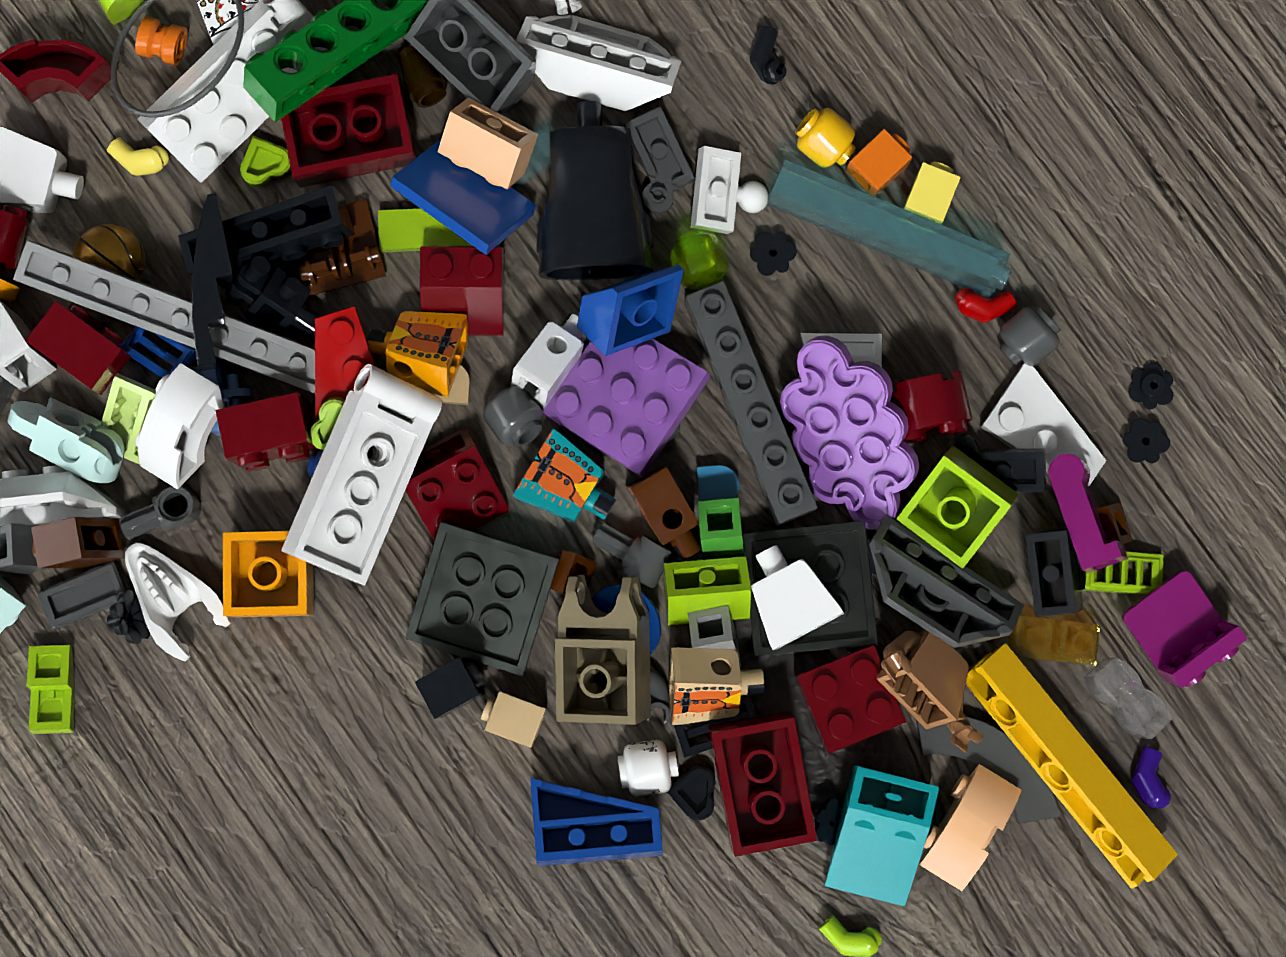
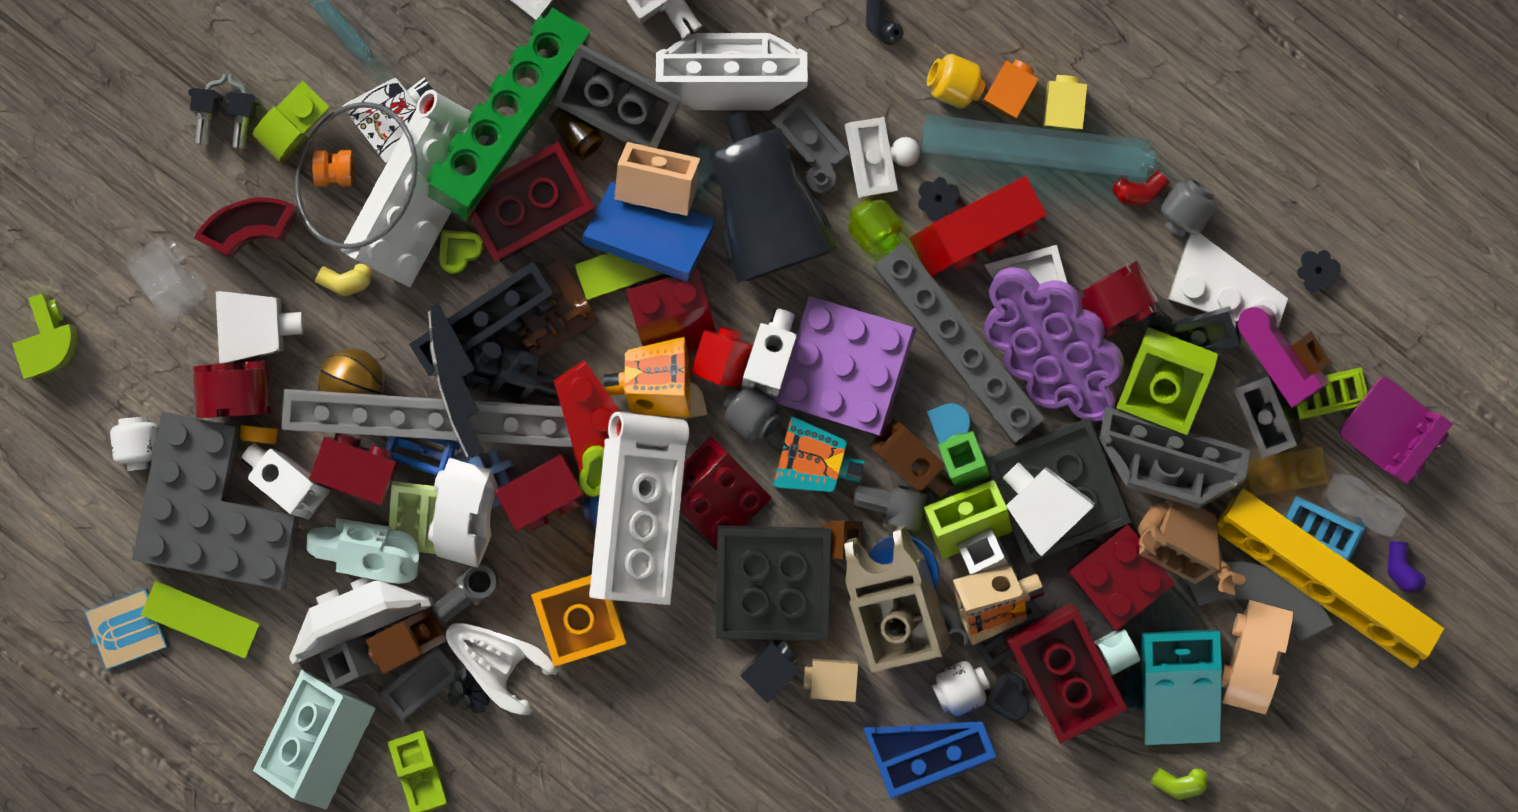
camera: 20 degrees left, 5 degrees up
(498, 346) = (722, 357): none -> red brick
(631, 310) = (828, 292): blue slope -> none
(806, 291) = (979, 227): none -> red wedge
(824, 777) = (1117, 651): none -> light aqua leg
(1112, 724) = (1355, 537): none -> dark azure slope
(1141, 389) = (1302, 226): black plant -> none

